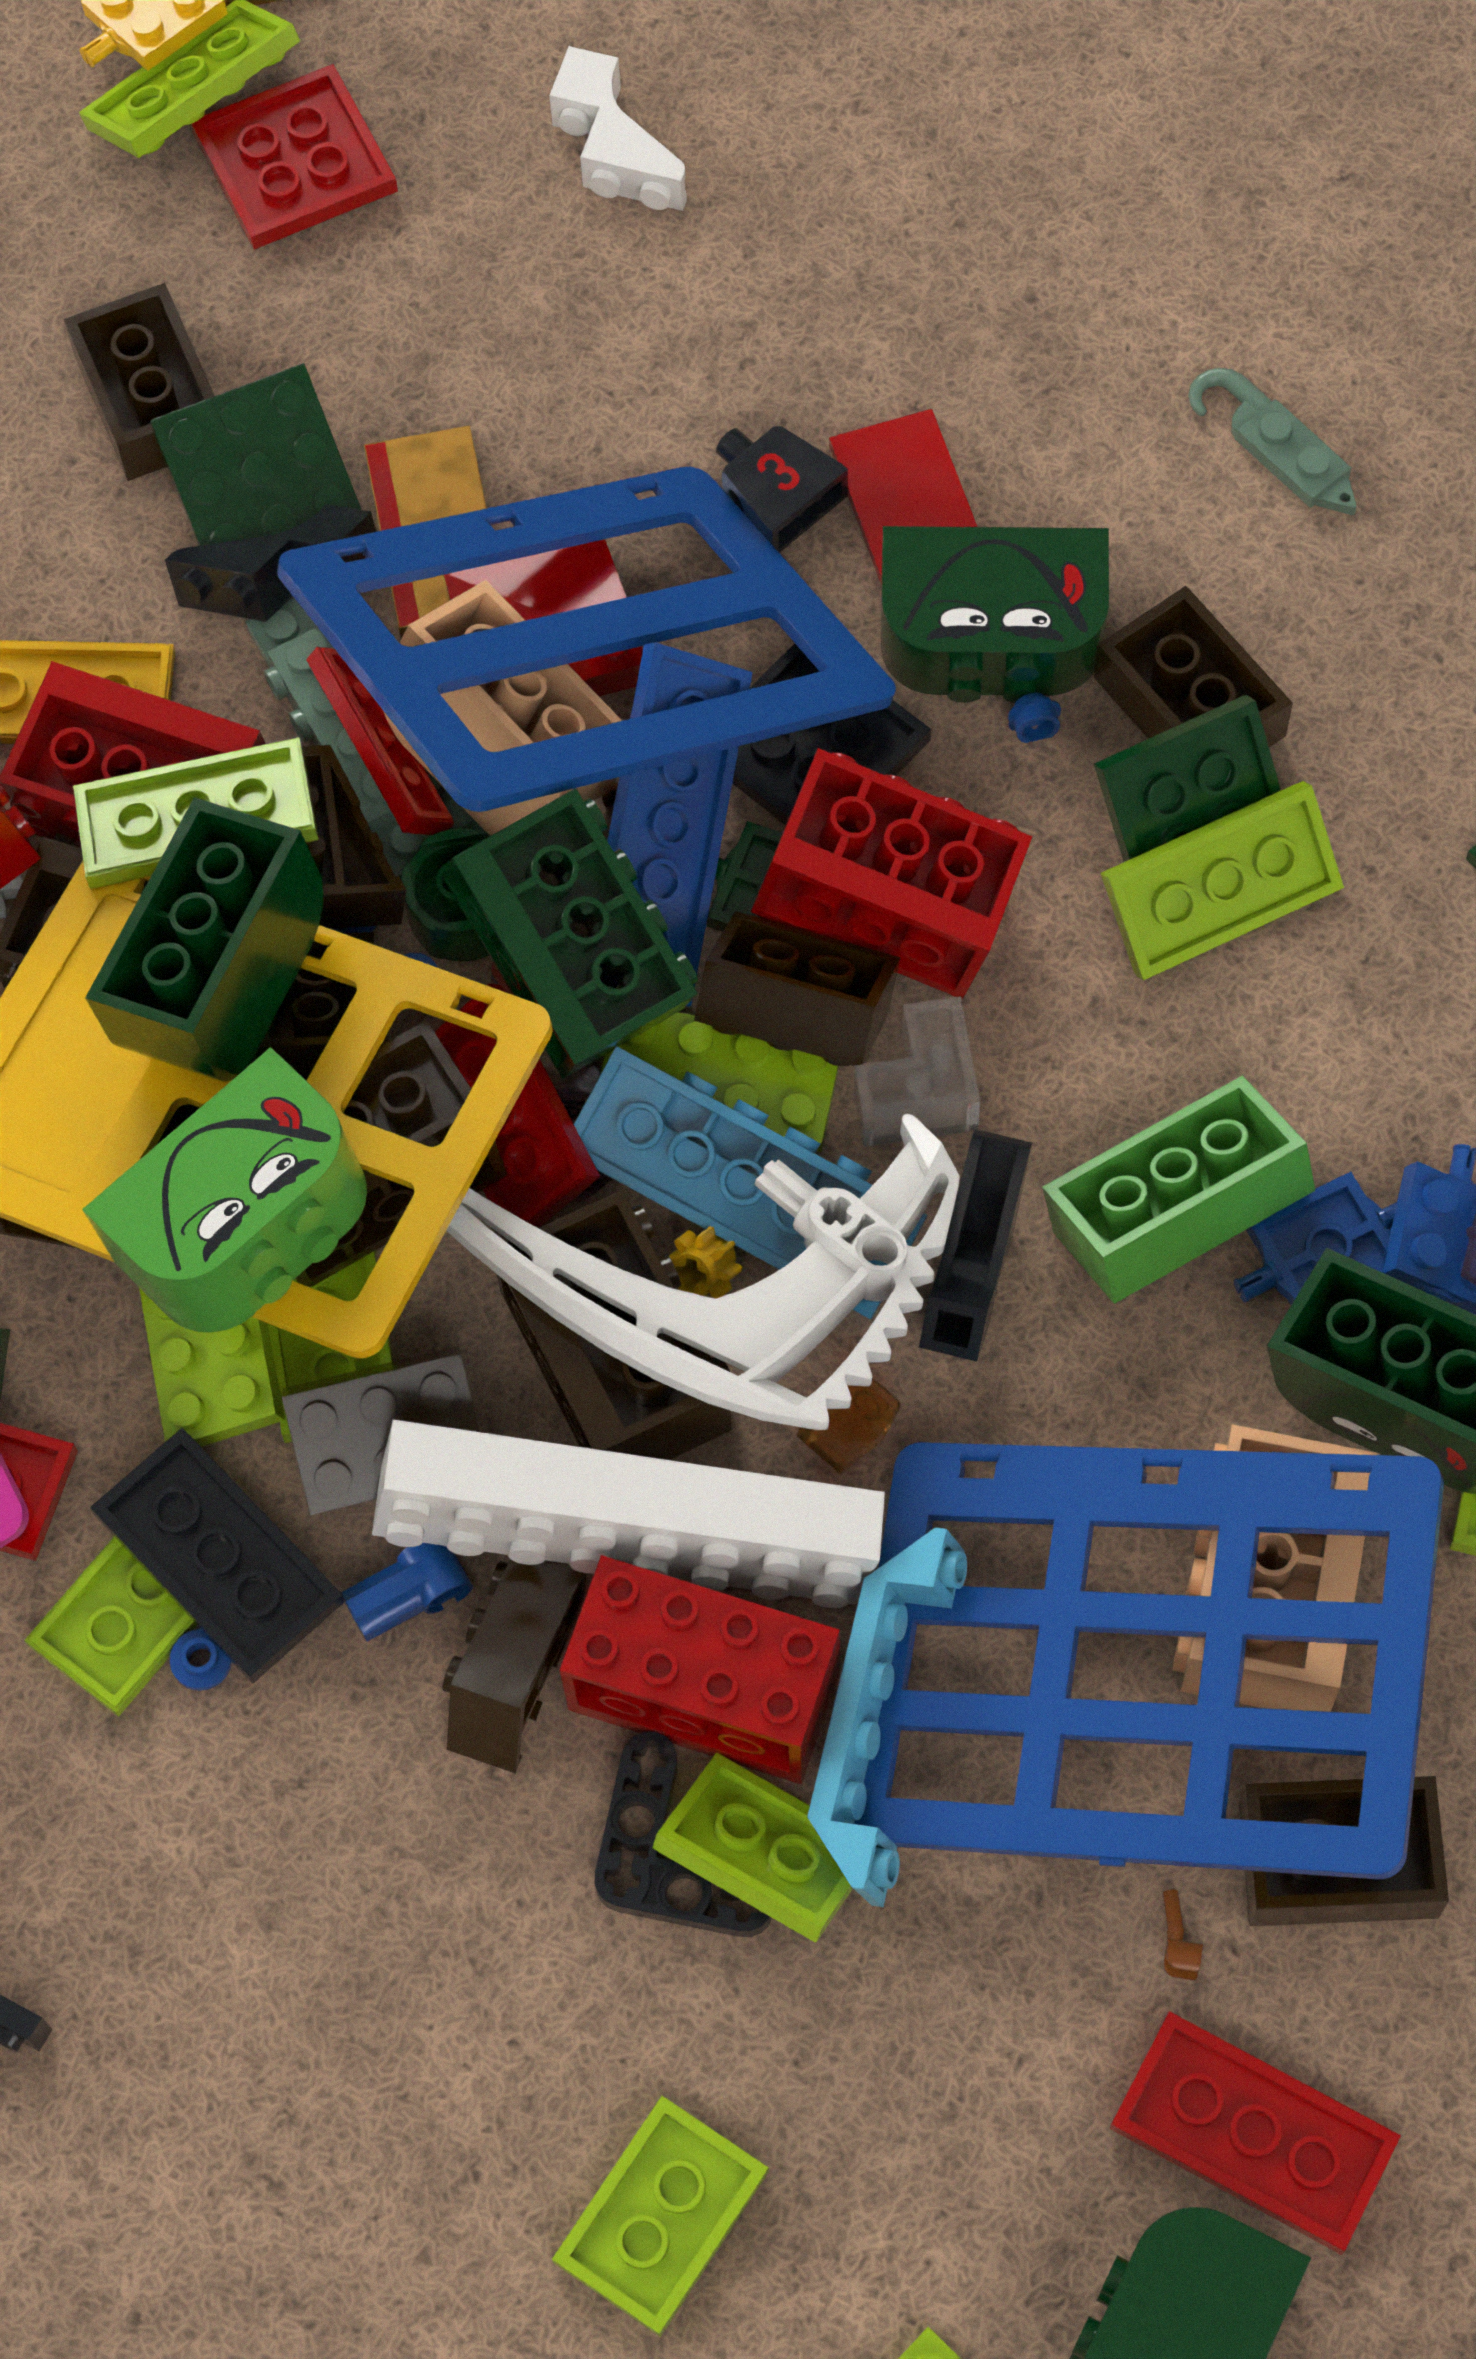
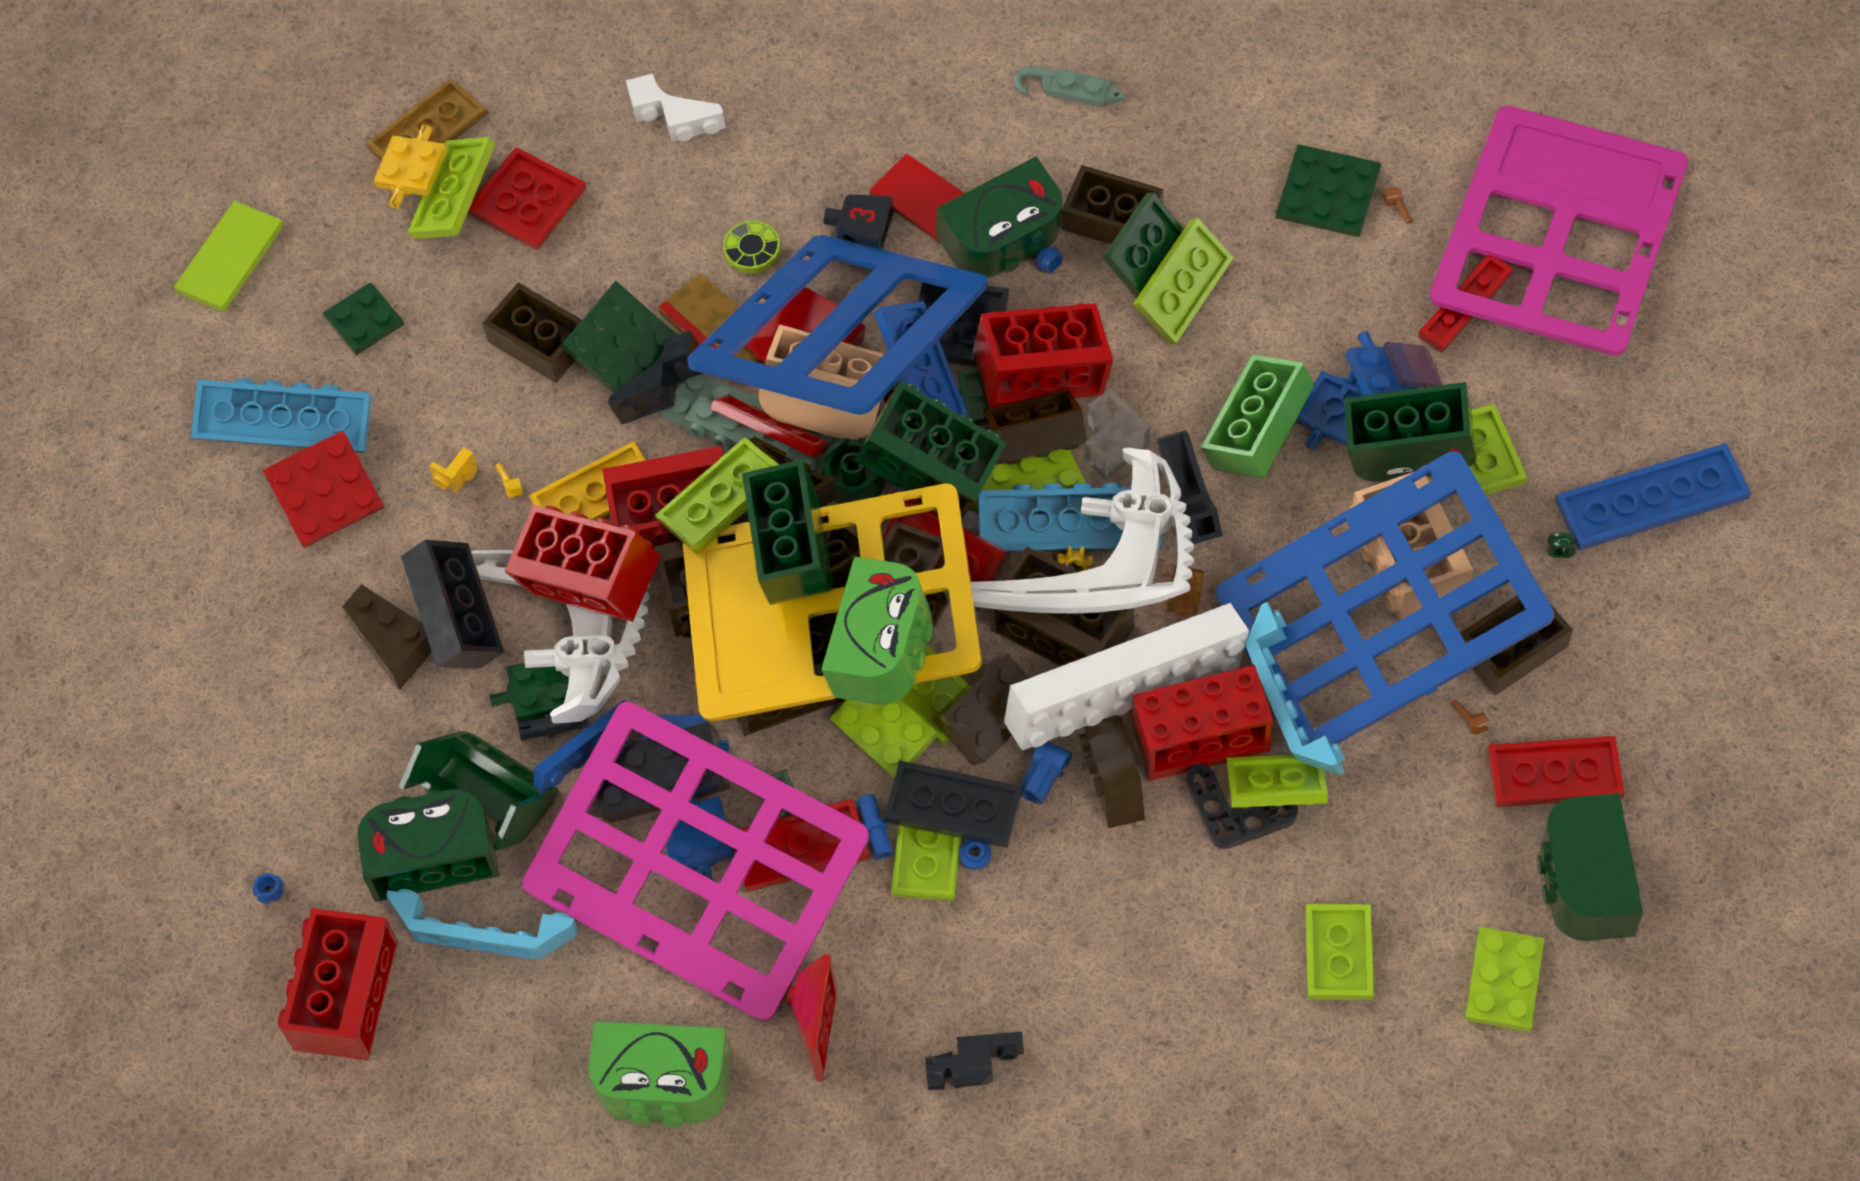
camera: 30 degrees left, 5 degrees down
(74, 1513) = (876, 826): none -> blue pin
(580, 428) = (751, 246): none -> tile

